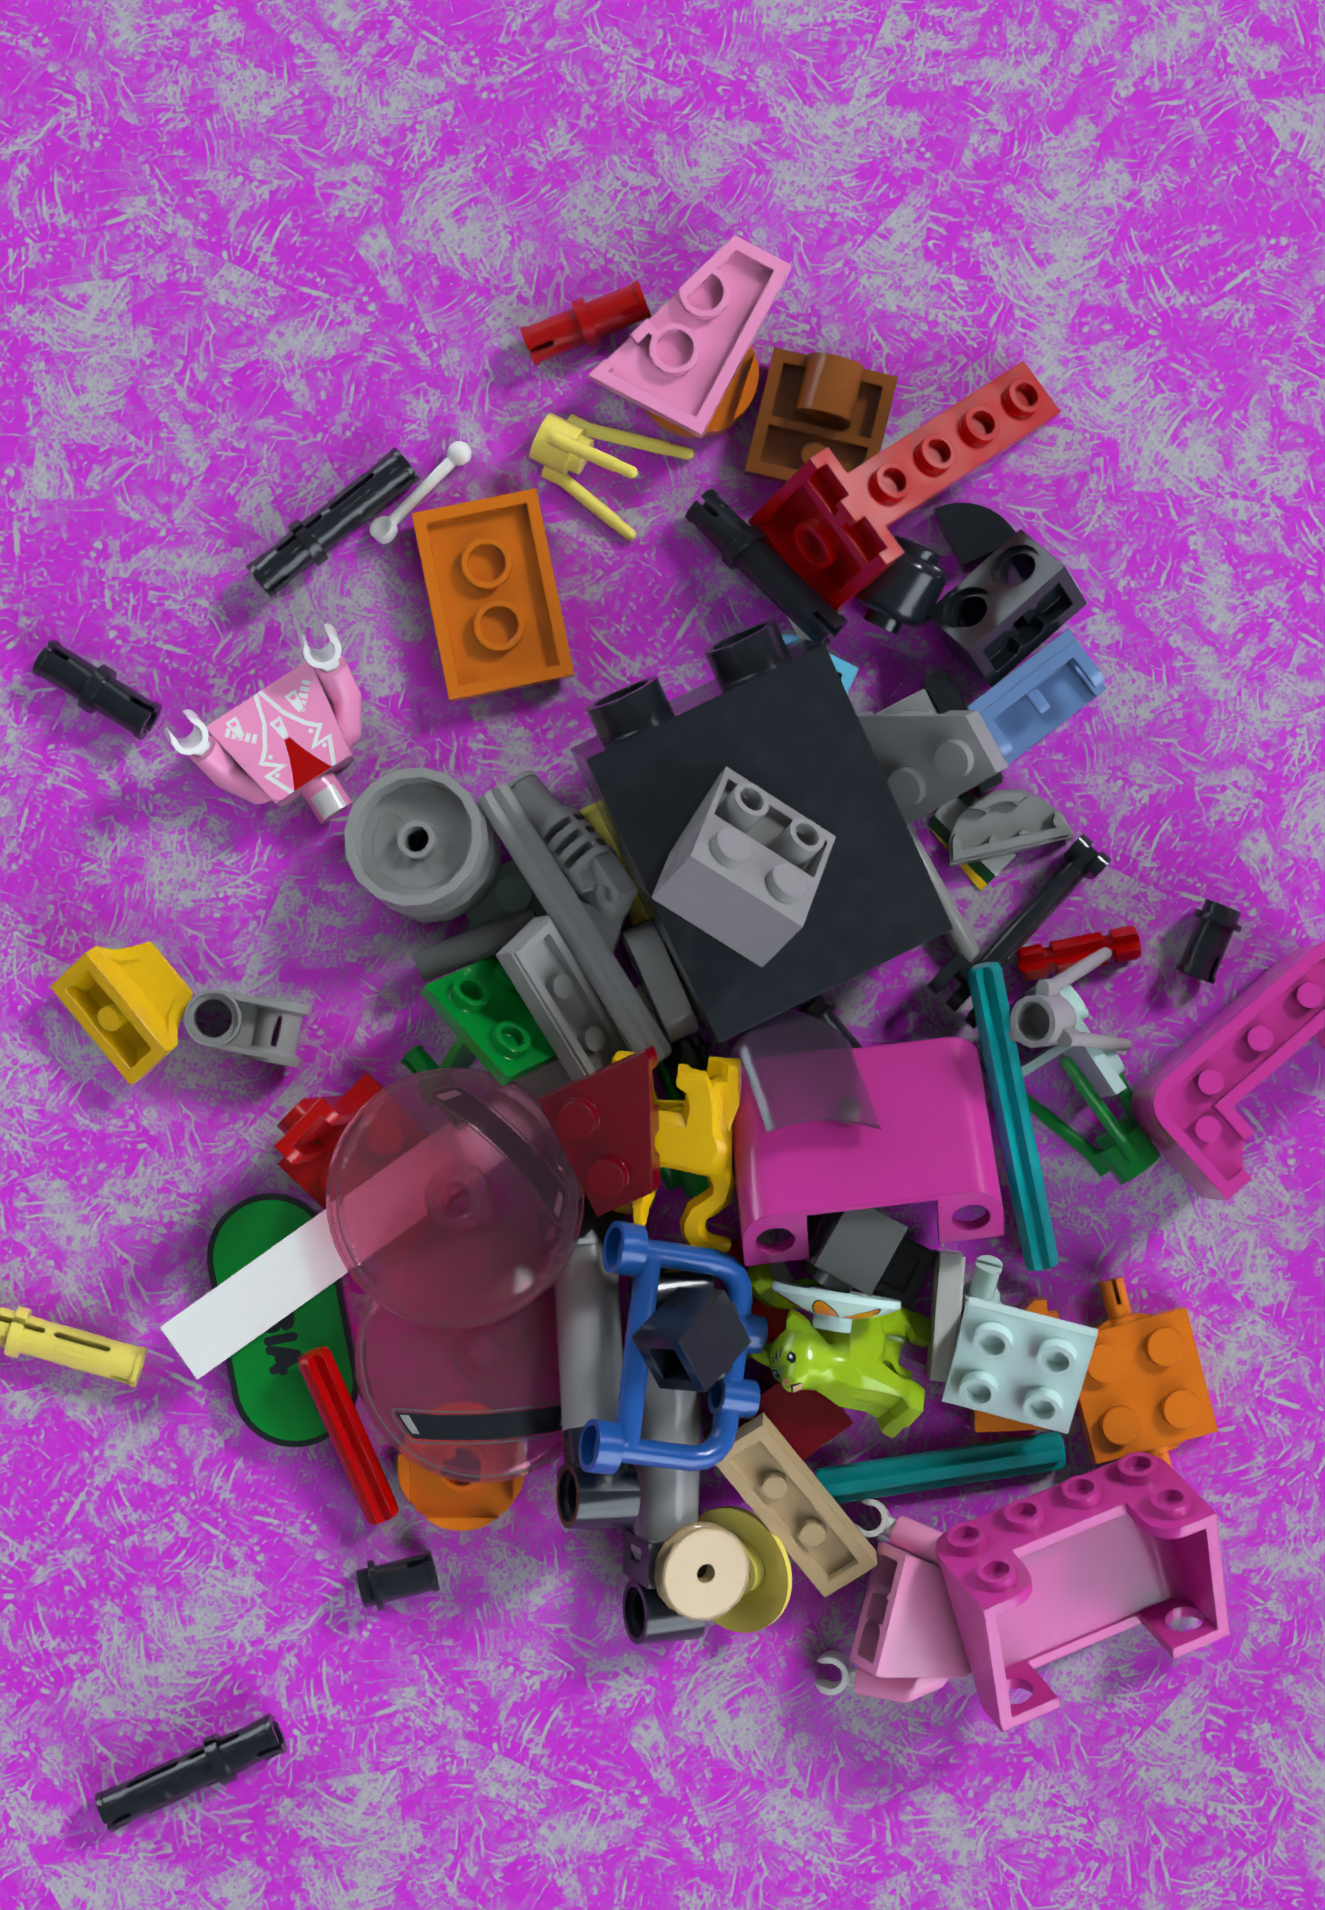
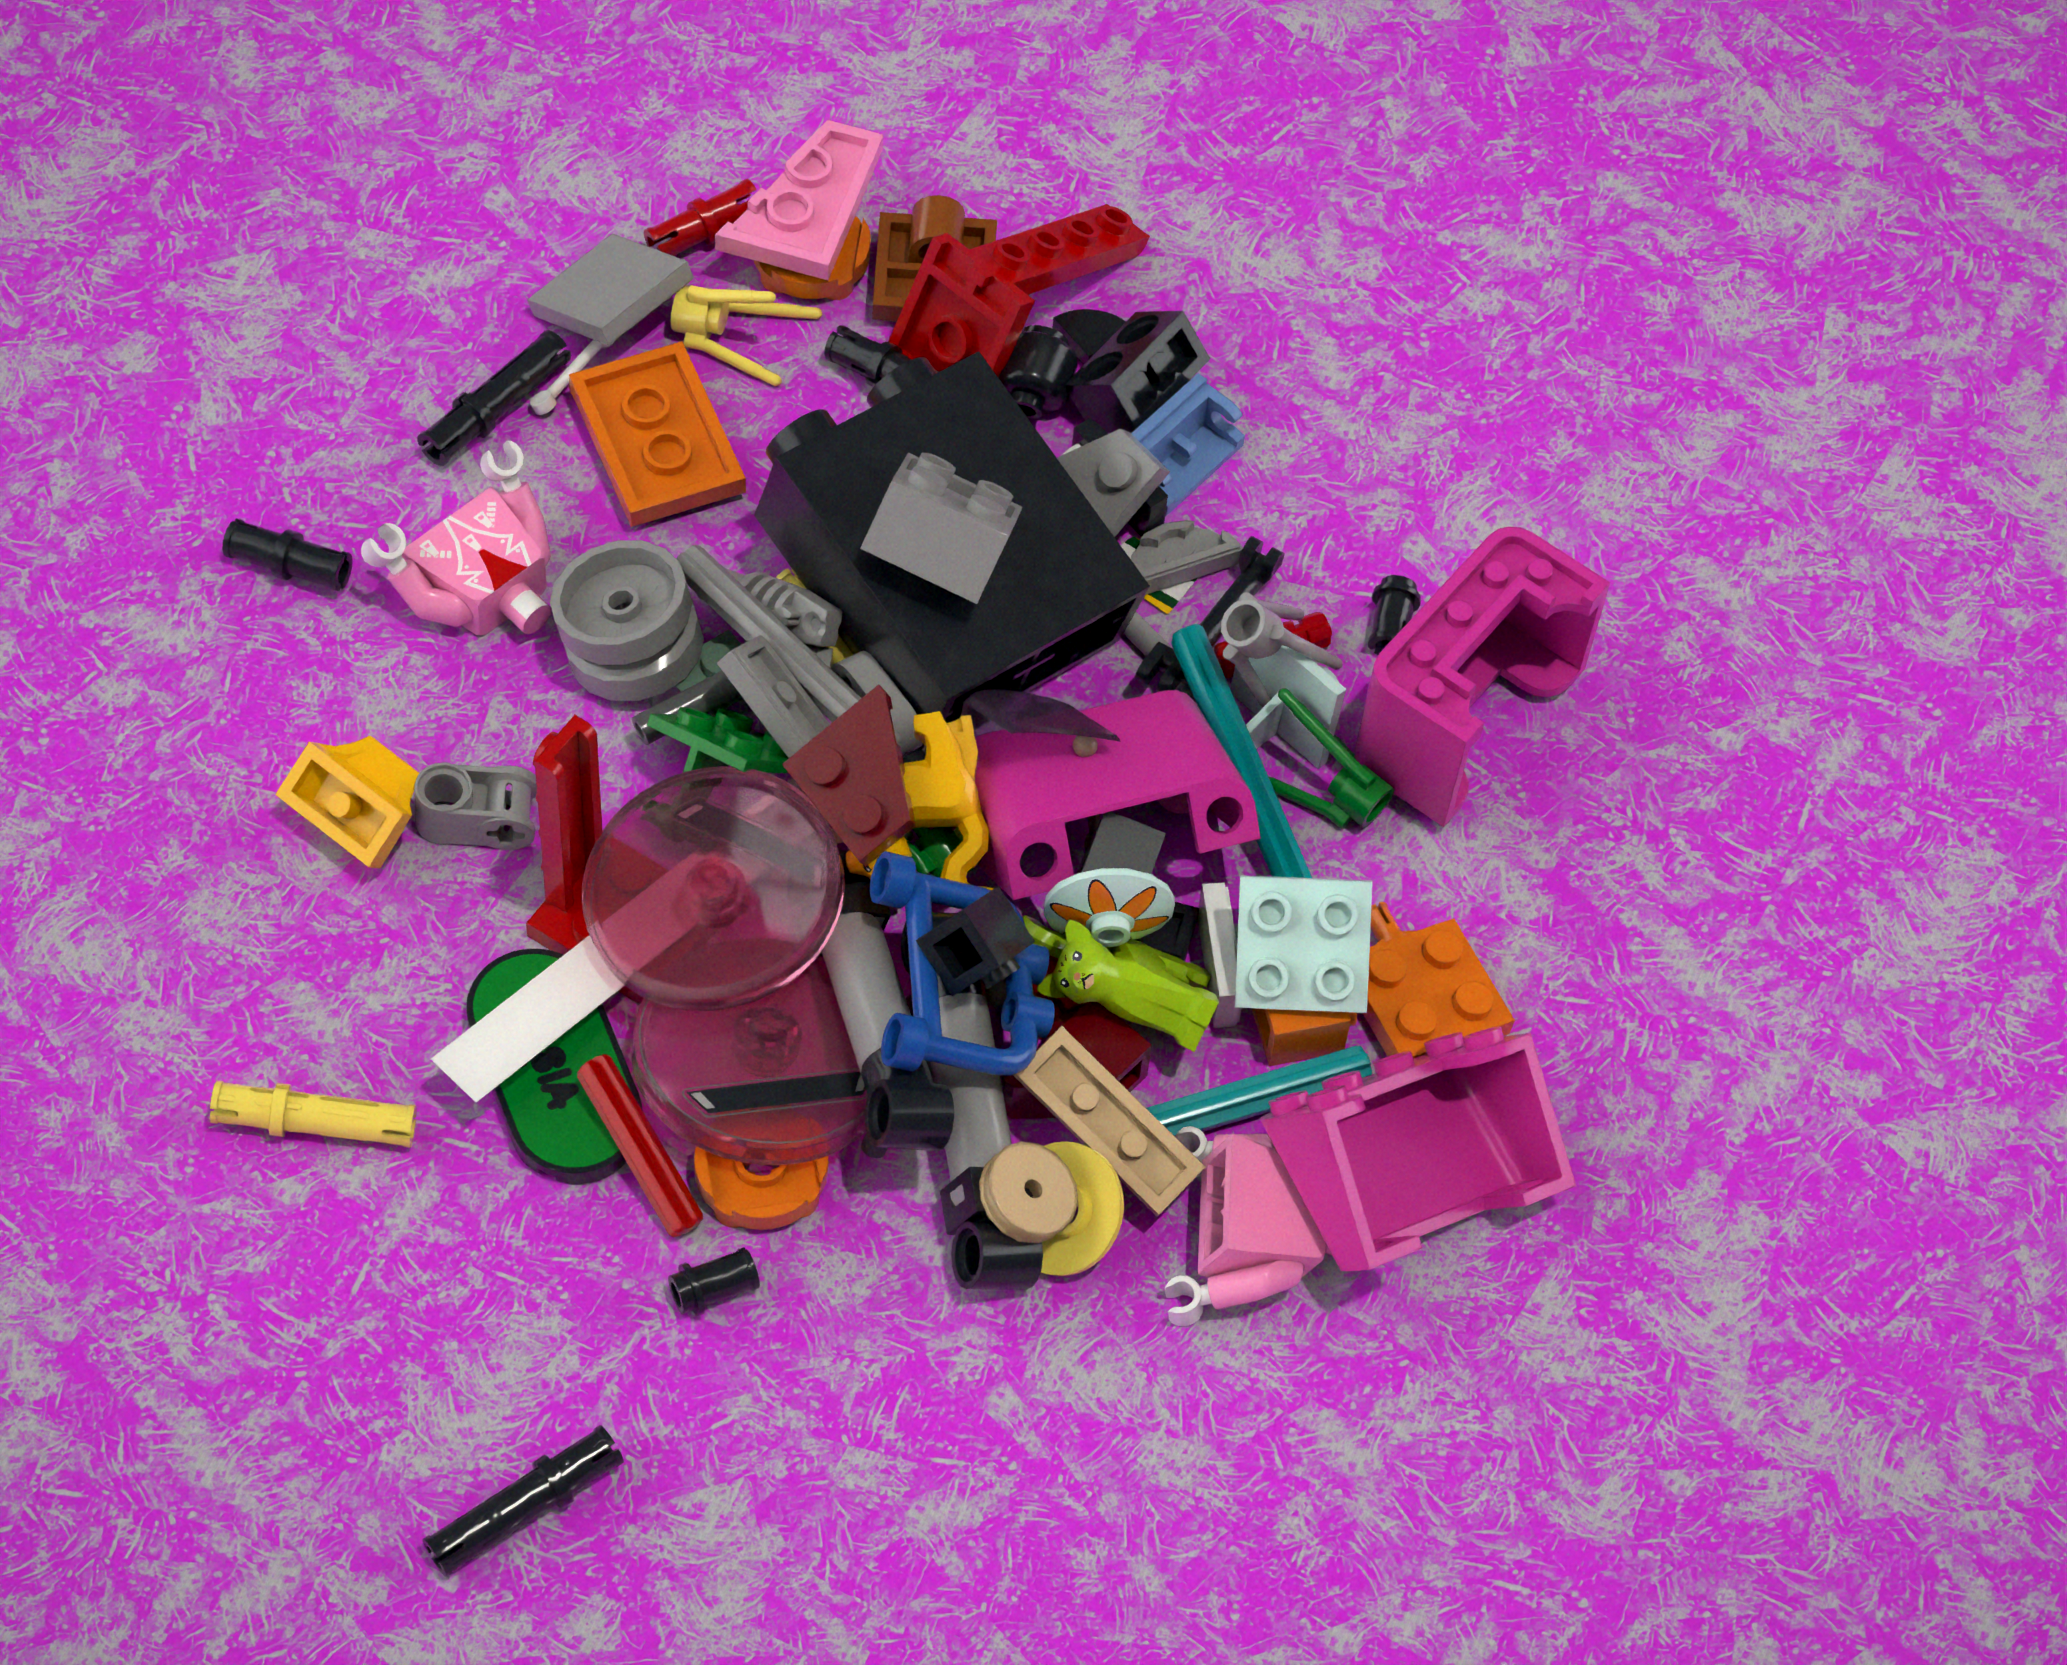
camera: 15 degrees left, 30 degrees down
(471, 407) = (610, 289): none -> light grey tile

